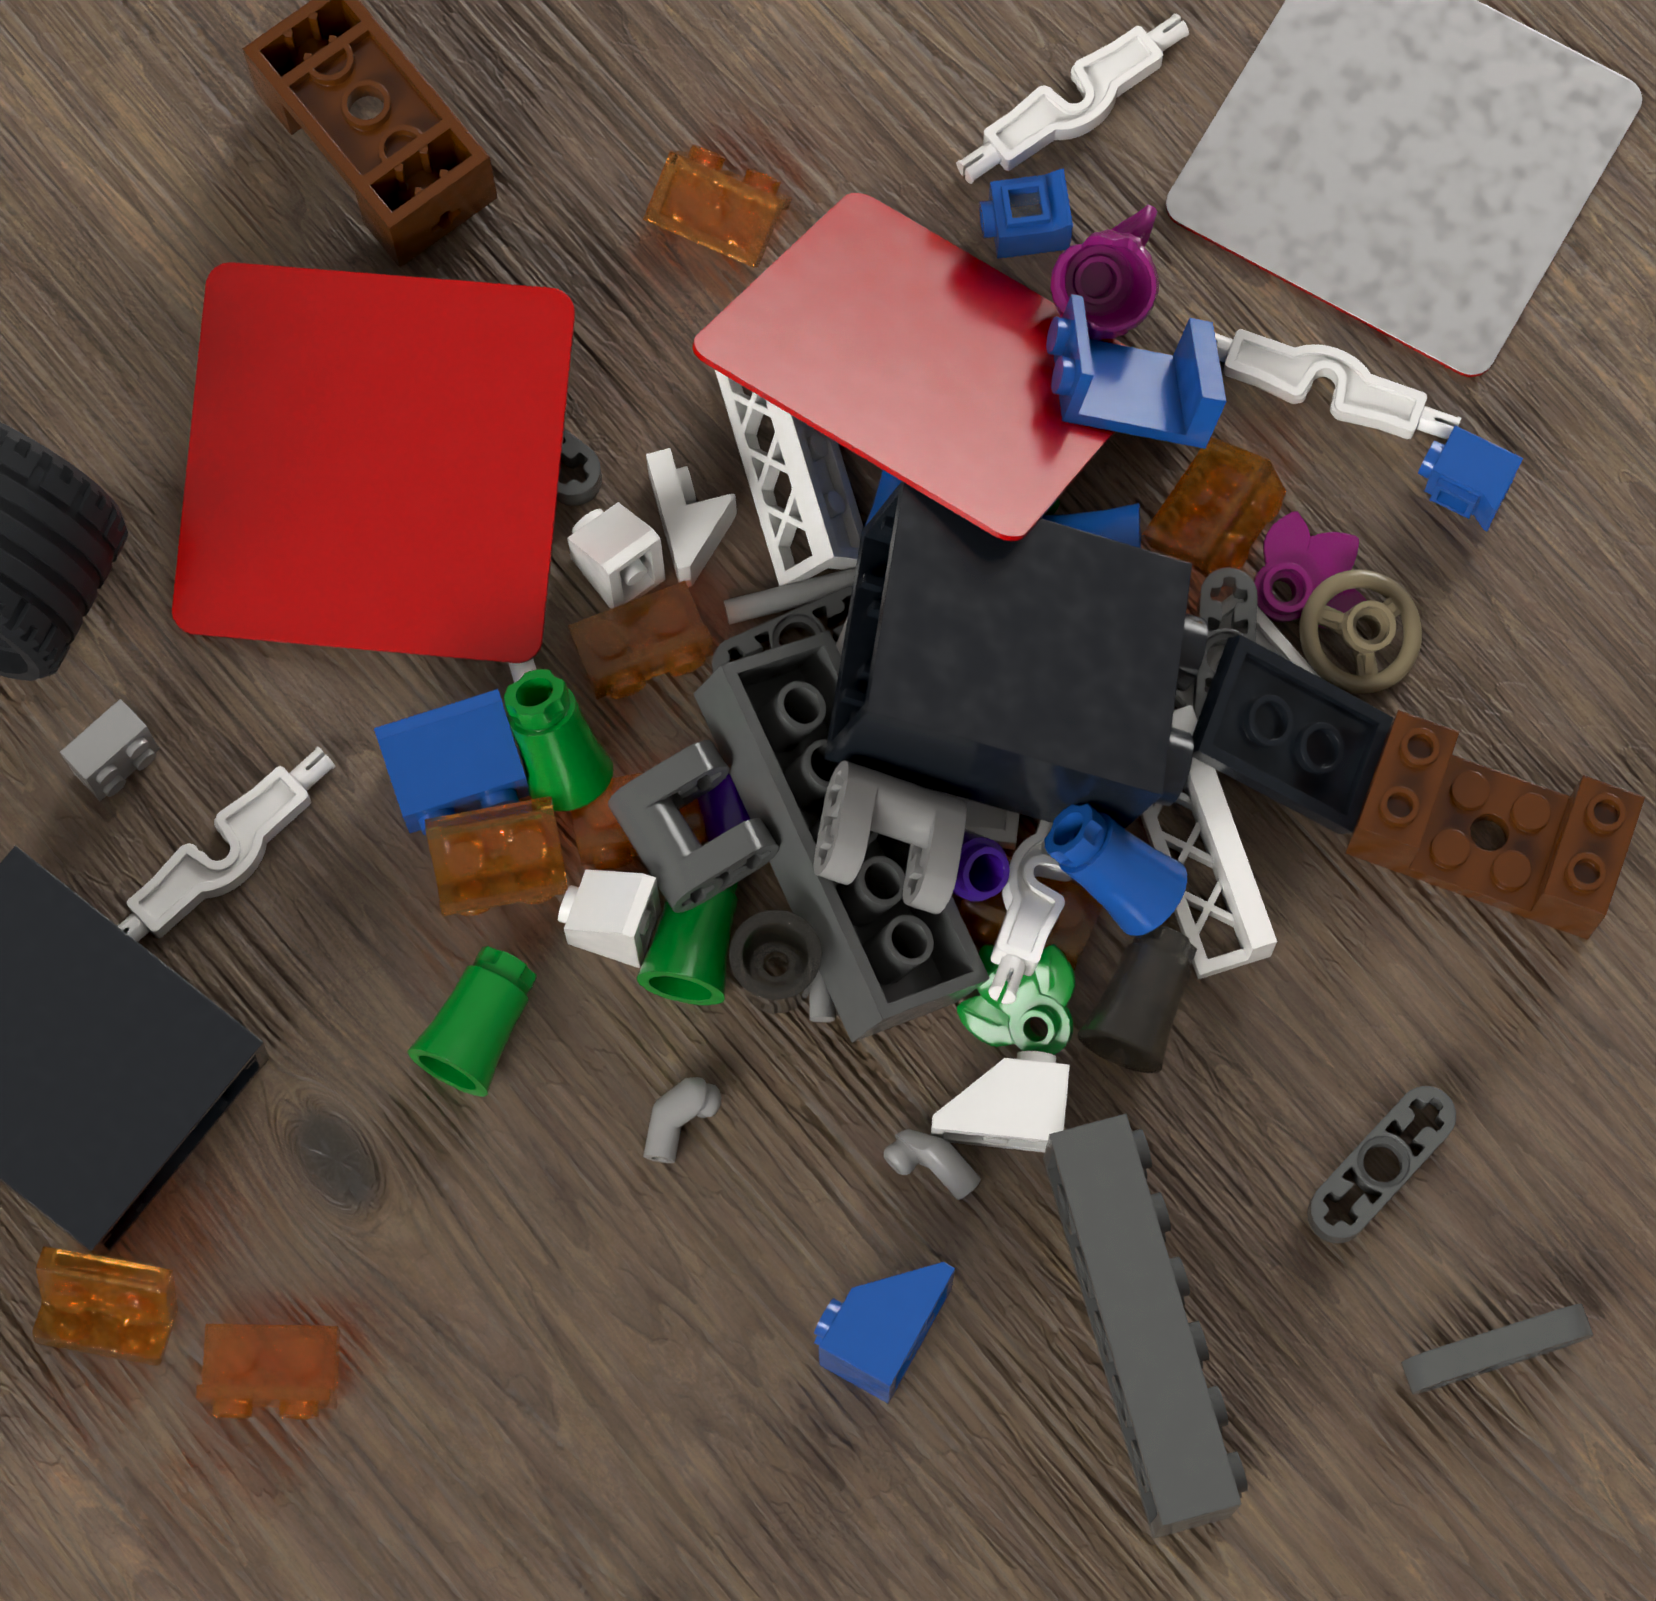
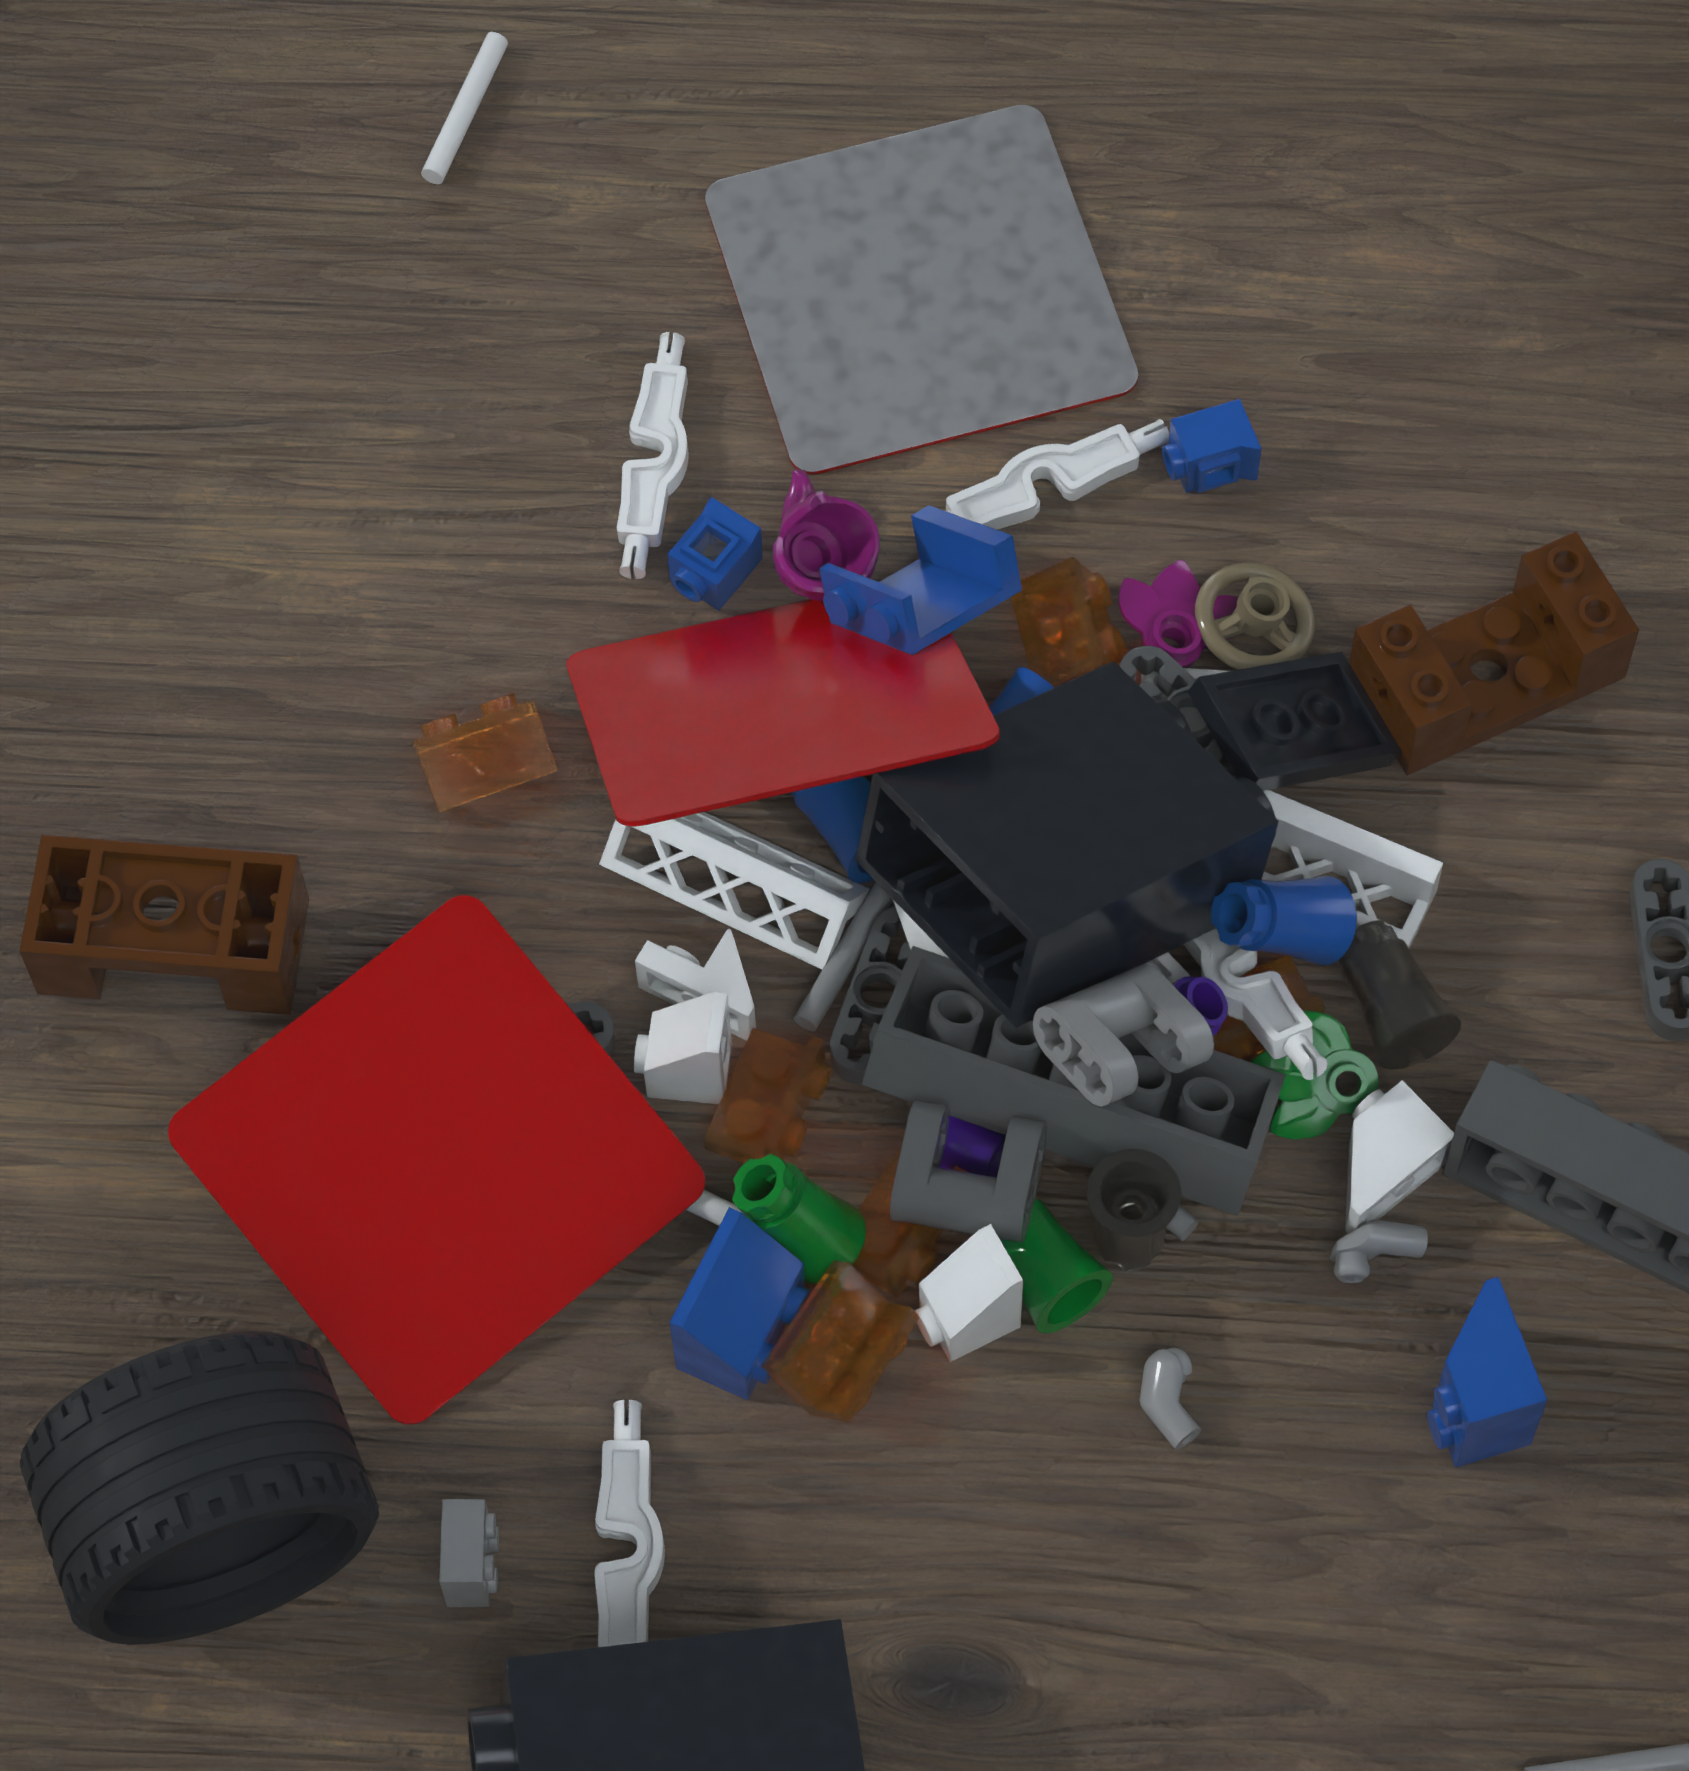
camera: 45 degrees left, 10 degrees down
(475, 1022) = (956, 1474): green plant -> none

